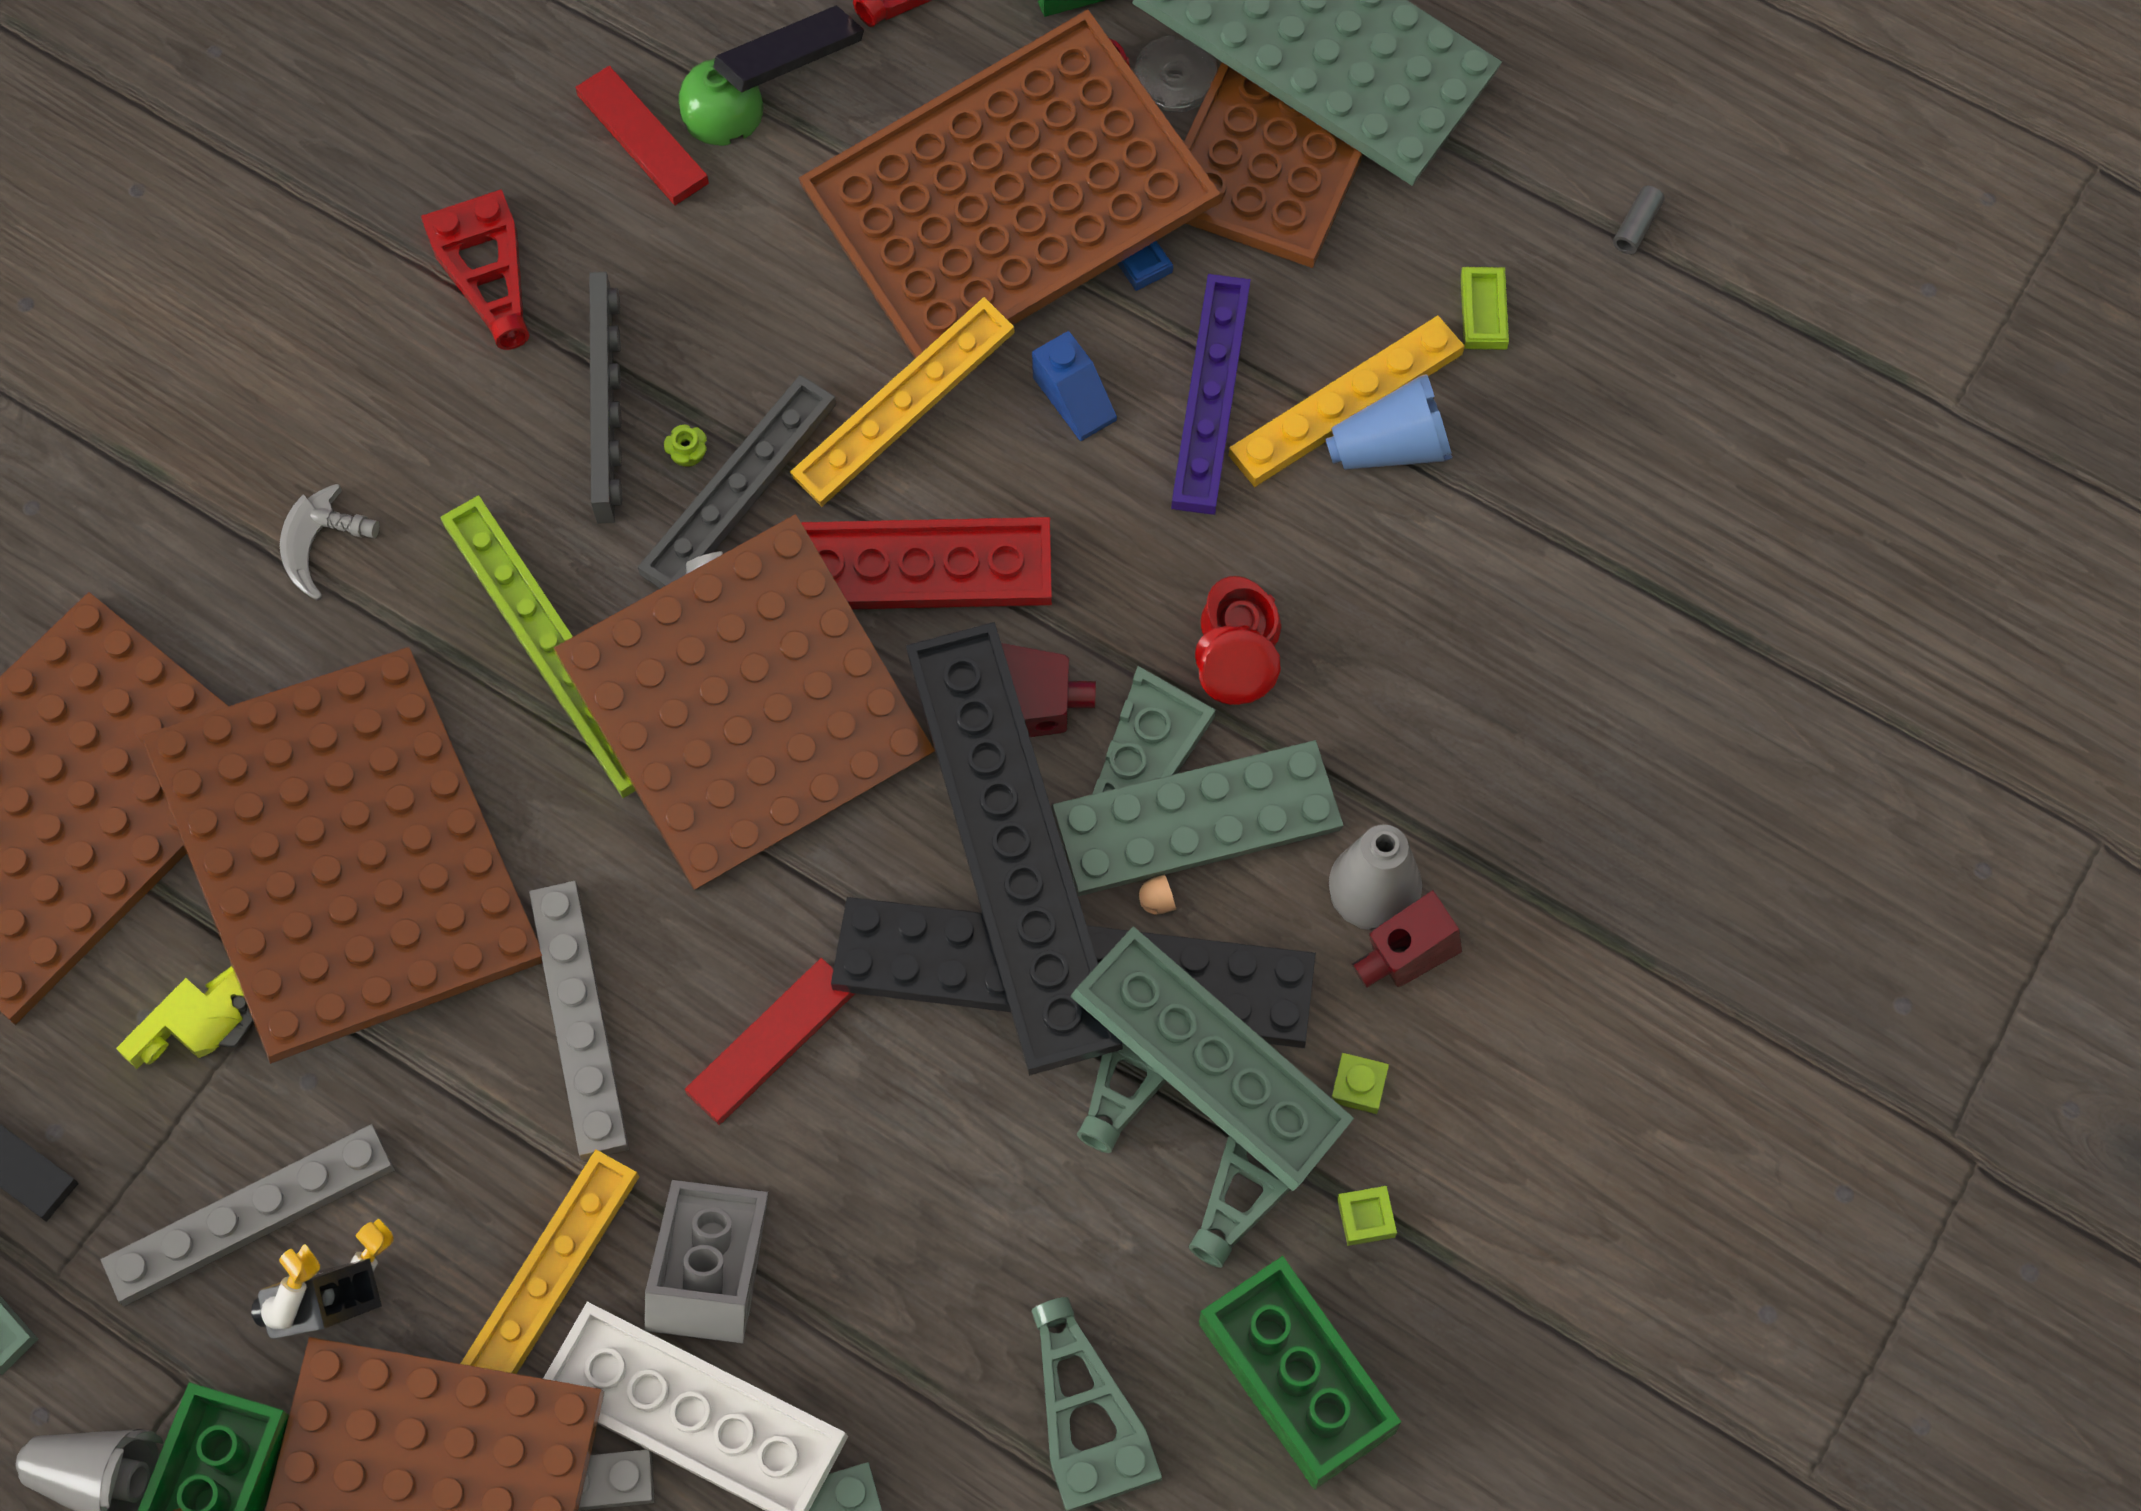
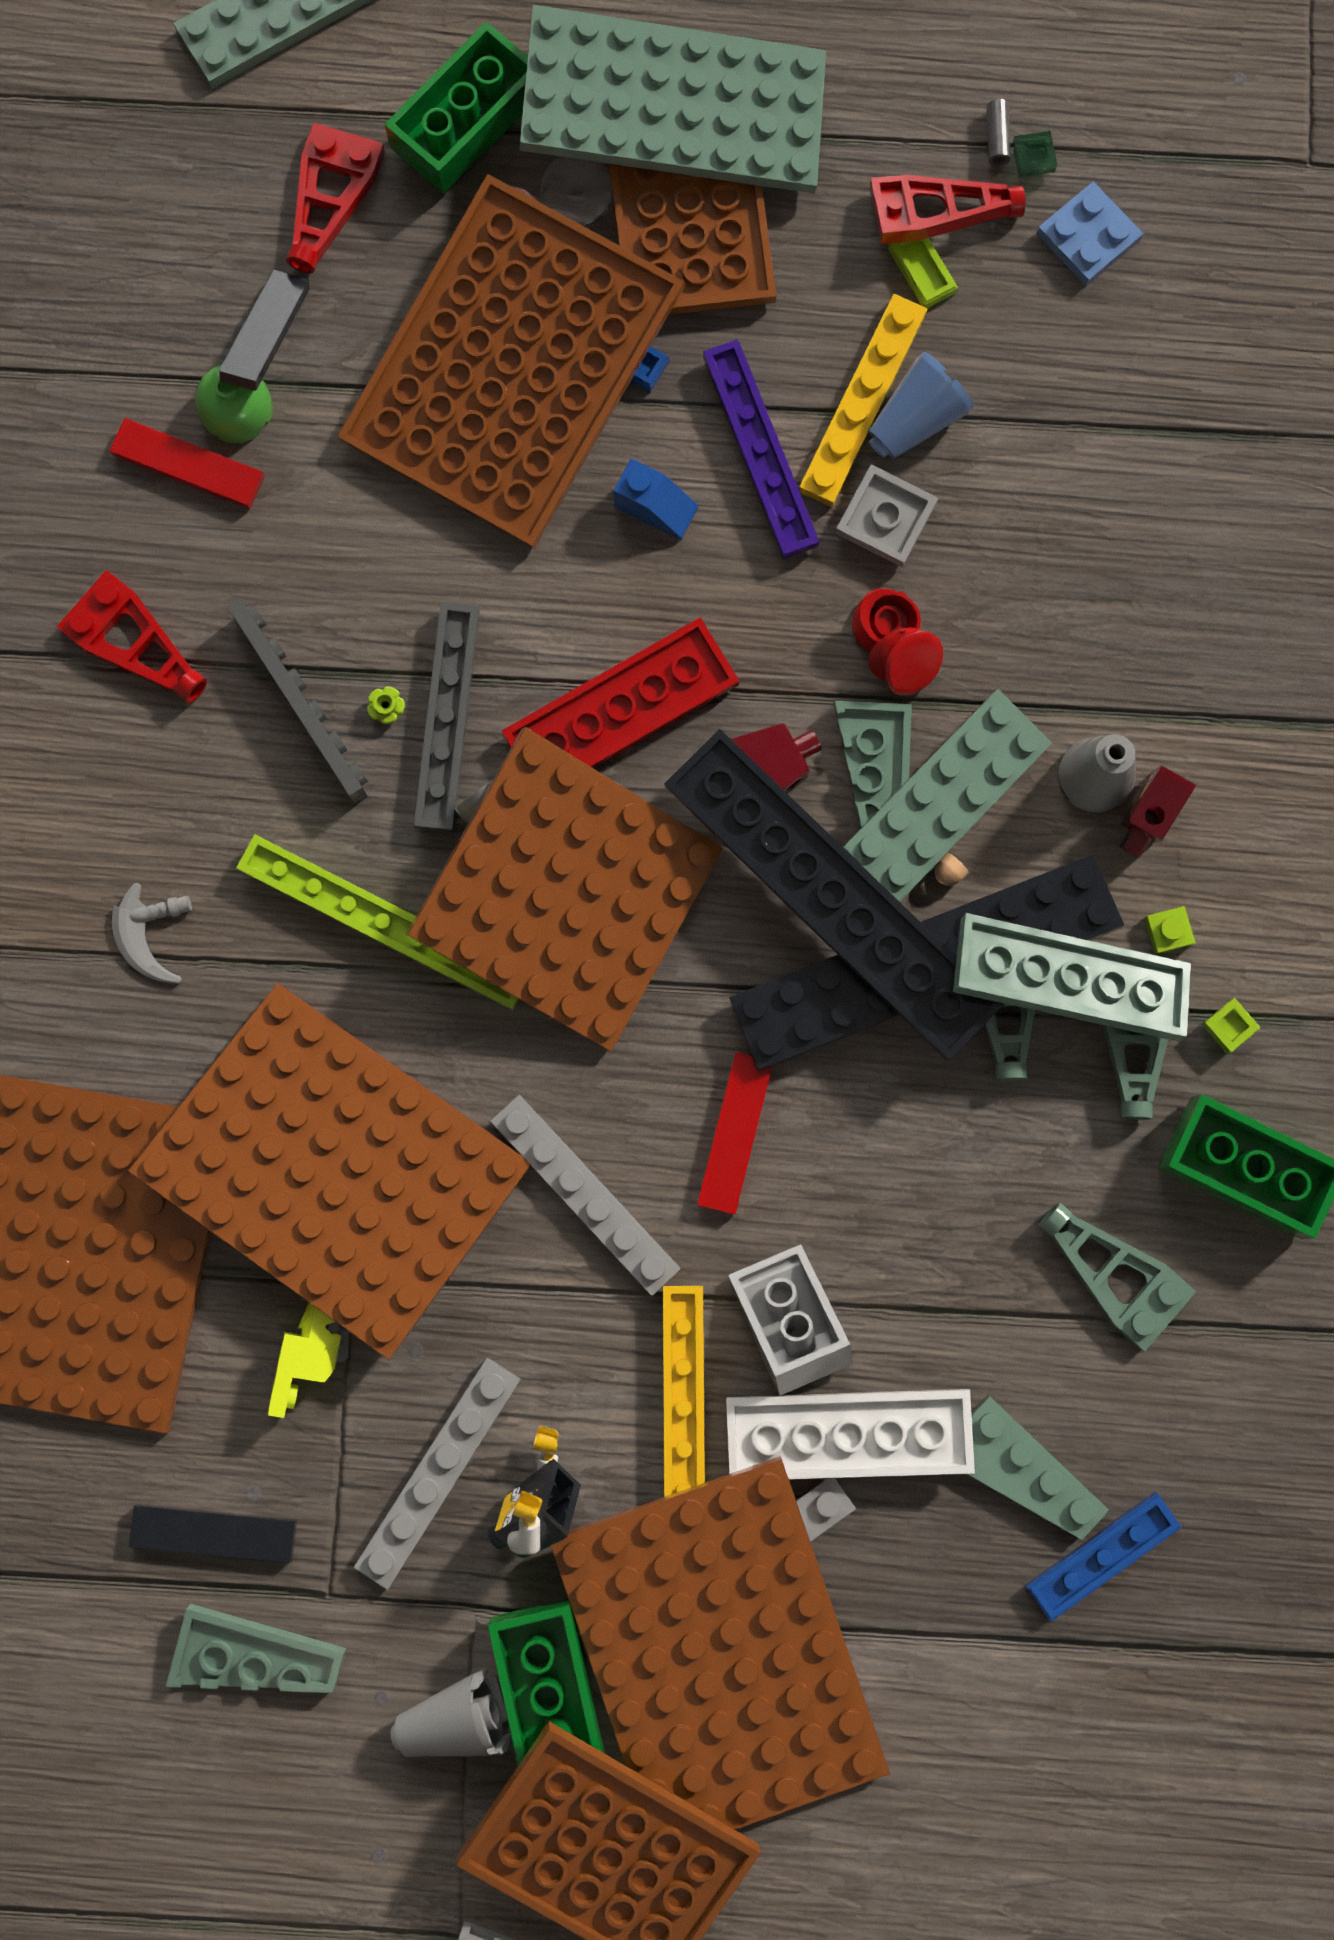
camera: 30 degrees left, 15 degrees up
(902, 402) = (535, 582): yellow plate -> none
(1302, 518) = (886, 515): none -> light grey plate
(1489, 228) = (897, 216): none -> red plate
(1663, 256) = (1034, 154): none -> clear green plate
(1679, 358) = (1089, 233): none -> medium blue plate

